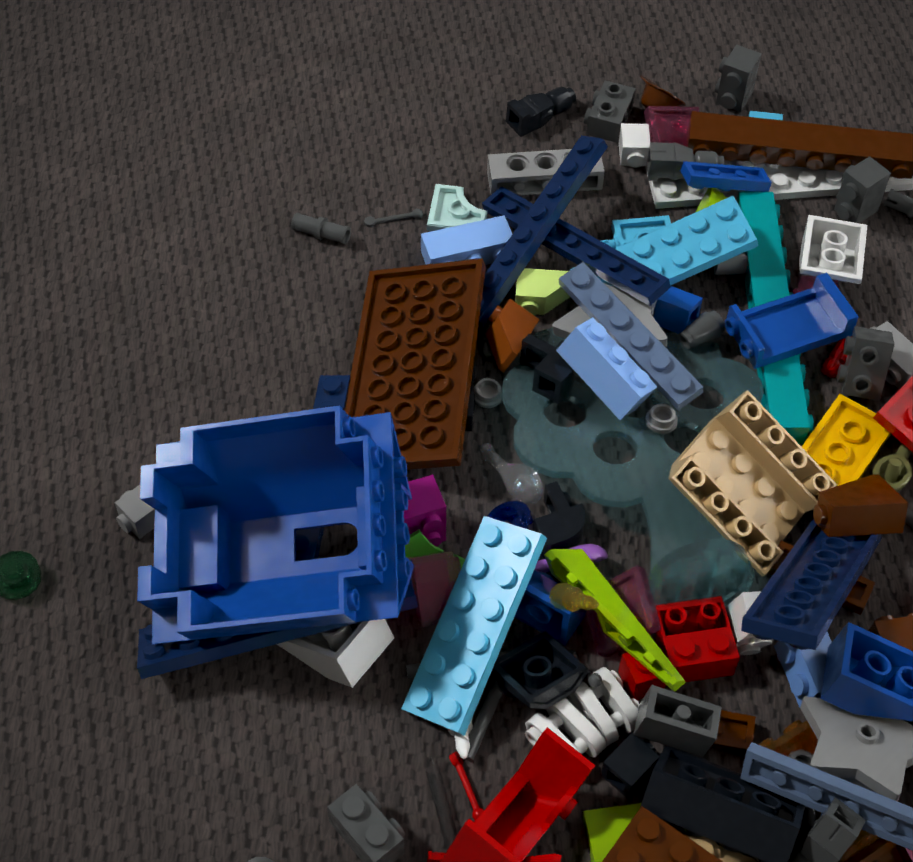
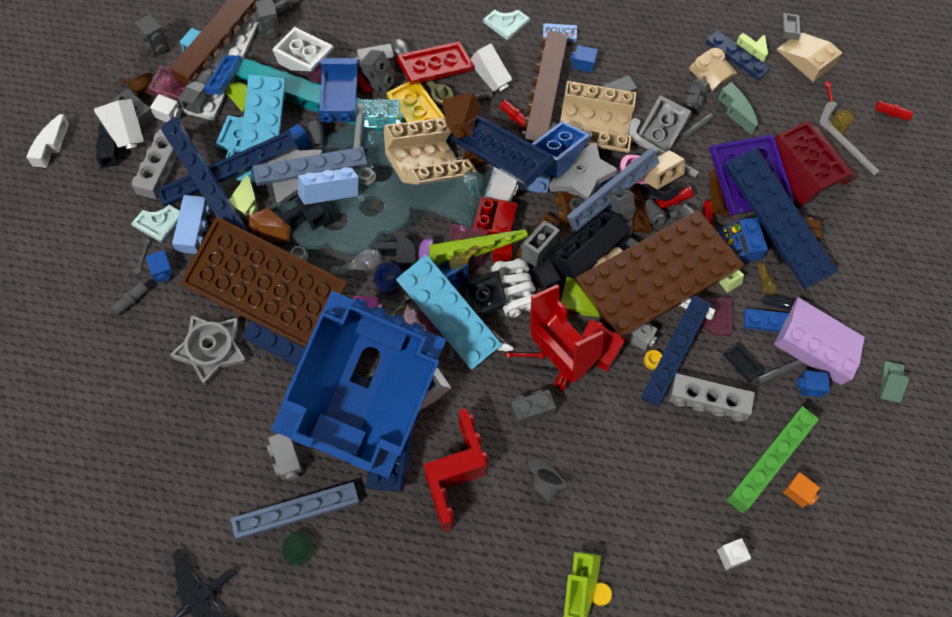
camera: 70 degrees left, 10 degrees up
(75, 551) = (294, 511): none -> sand blue plate
(204, 740) = (456, 469): none -> red bracket
(287, 346) = (210, 360): none -> light grey plate
(384, 239) = (160, 266): none -> blue brick
(509, 50) = (48, 142): none -> white slope
(575, 104) = (121, 123): none -> white slope
(743, 377) = (358, 127): none -> light grey bar
(785, 392) = (381, 112): none -> clear light blue brick

